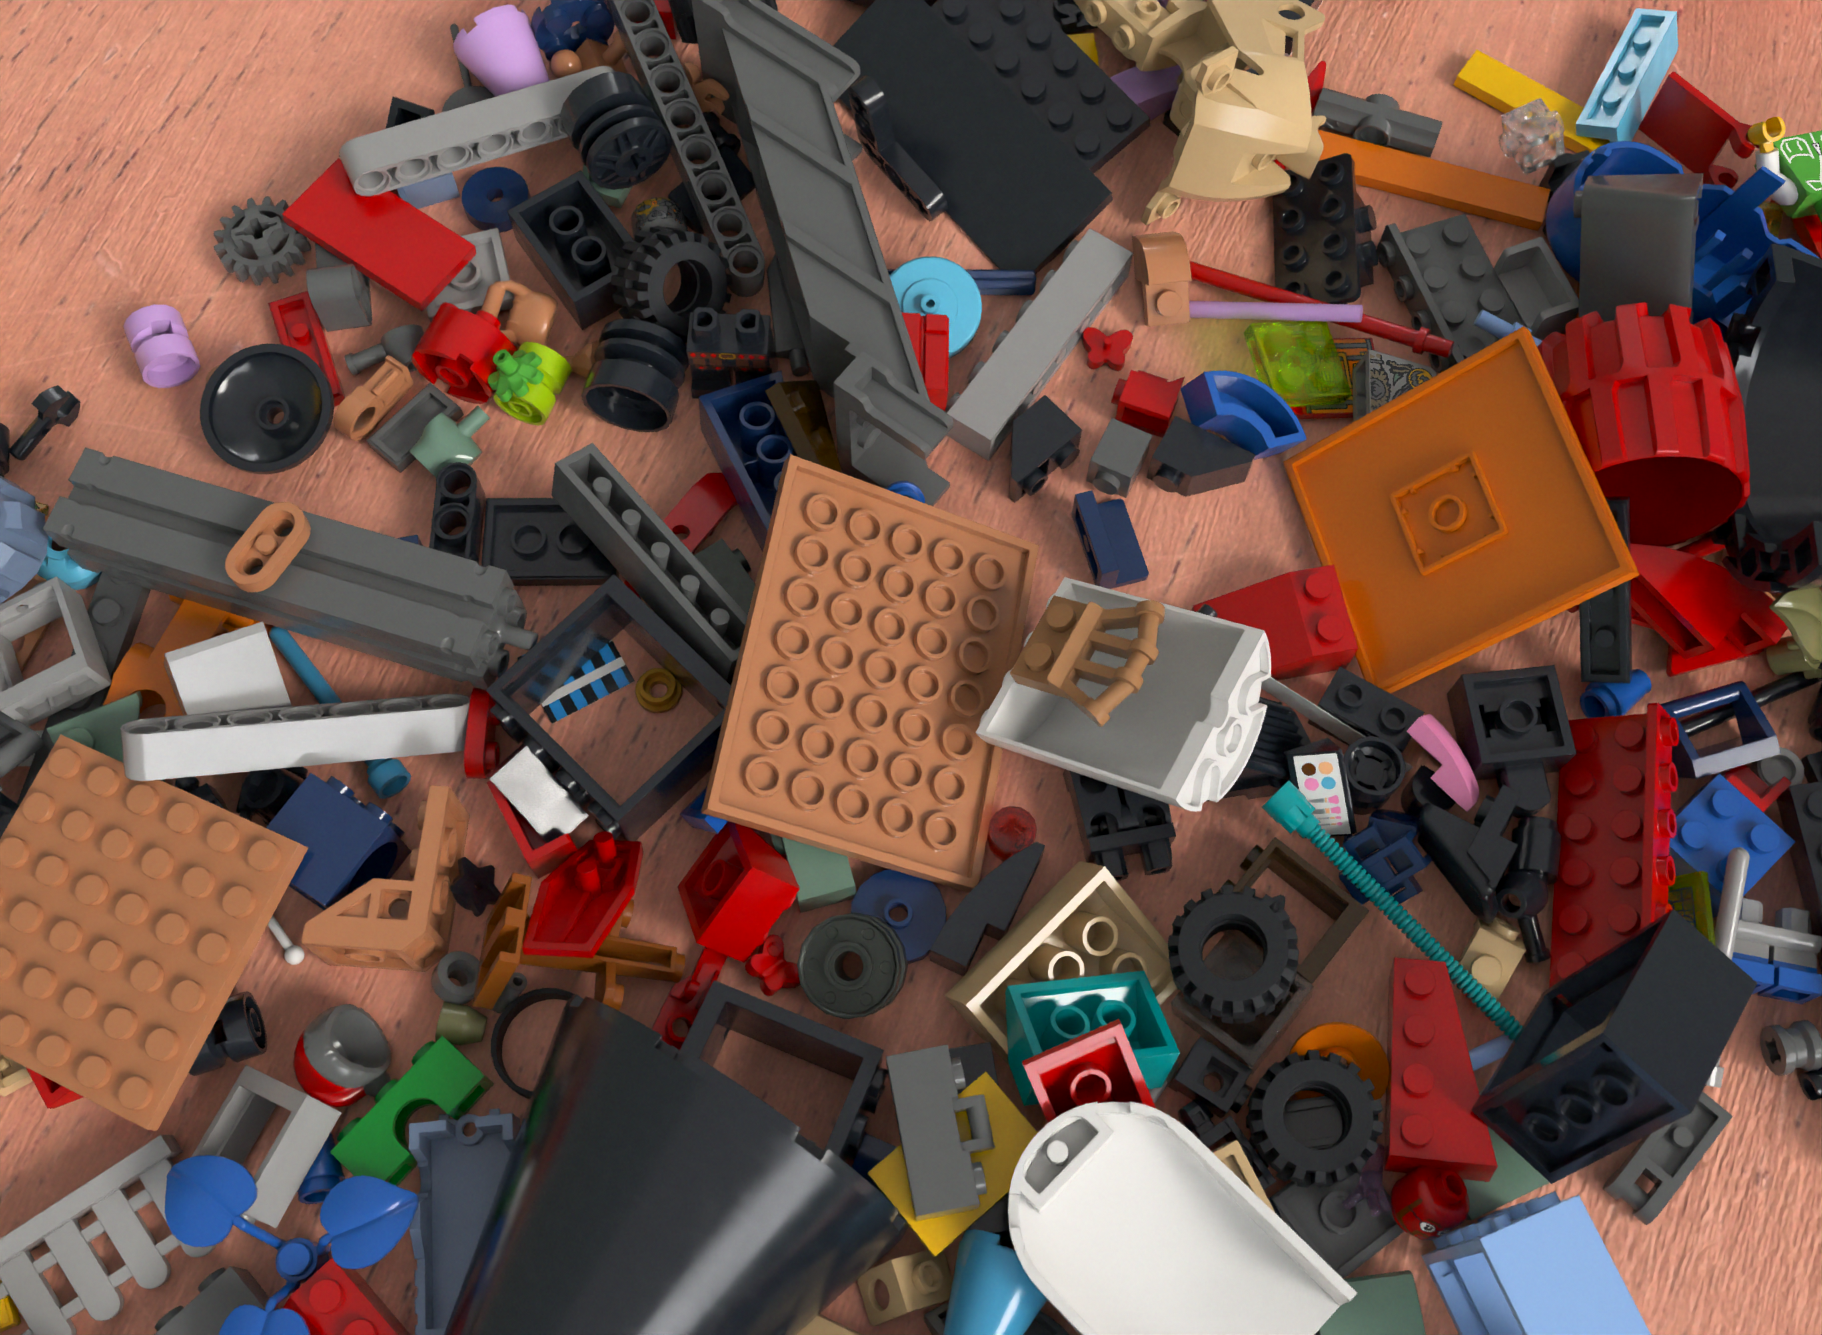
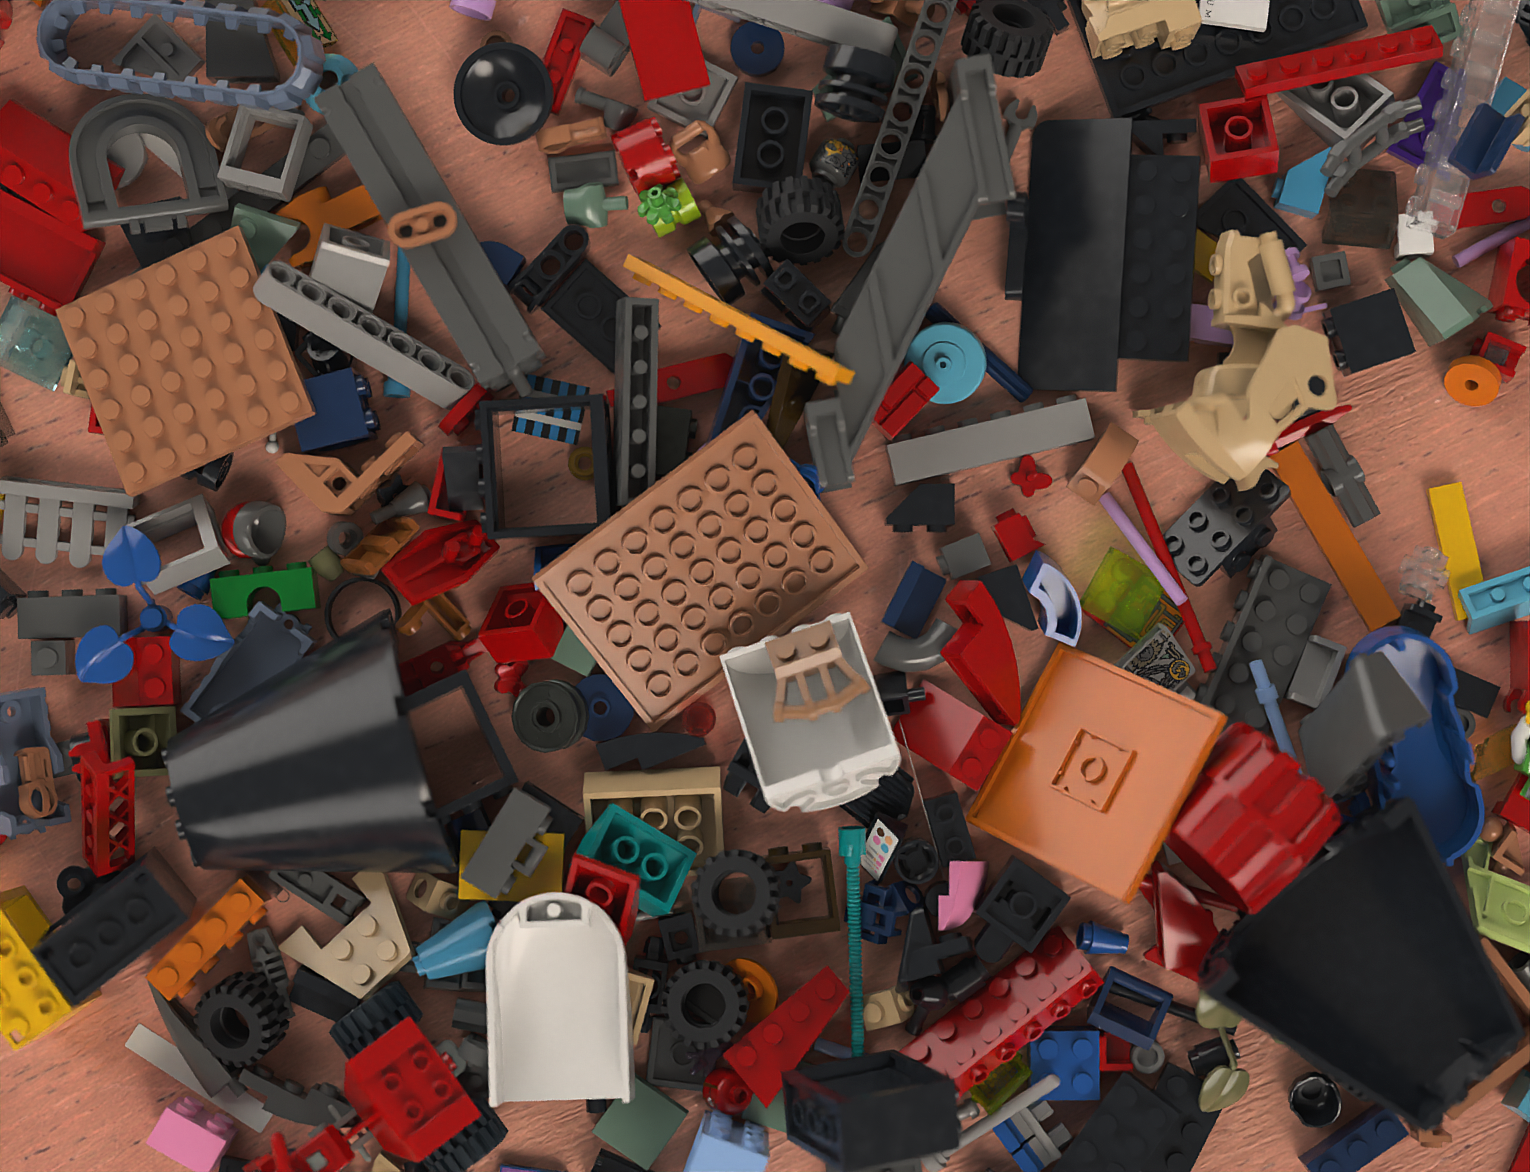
camera: 45 degrees right, 20 degrees up
(497, 869) = (410, 501): none -> dark grey cone
(702, 391) = (747, 326): none -> light orange plate
(1171, 567) = (915, 653): none -> dark grey cylinder
(1226, 517) = (984, 652): none -> red slope
(1607, 620) = (1112, 915): black tile -> none

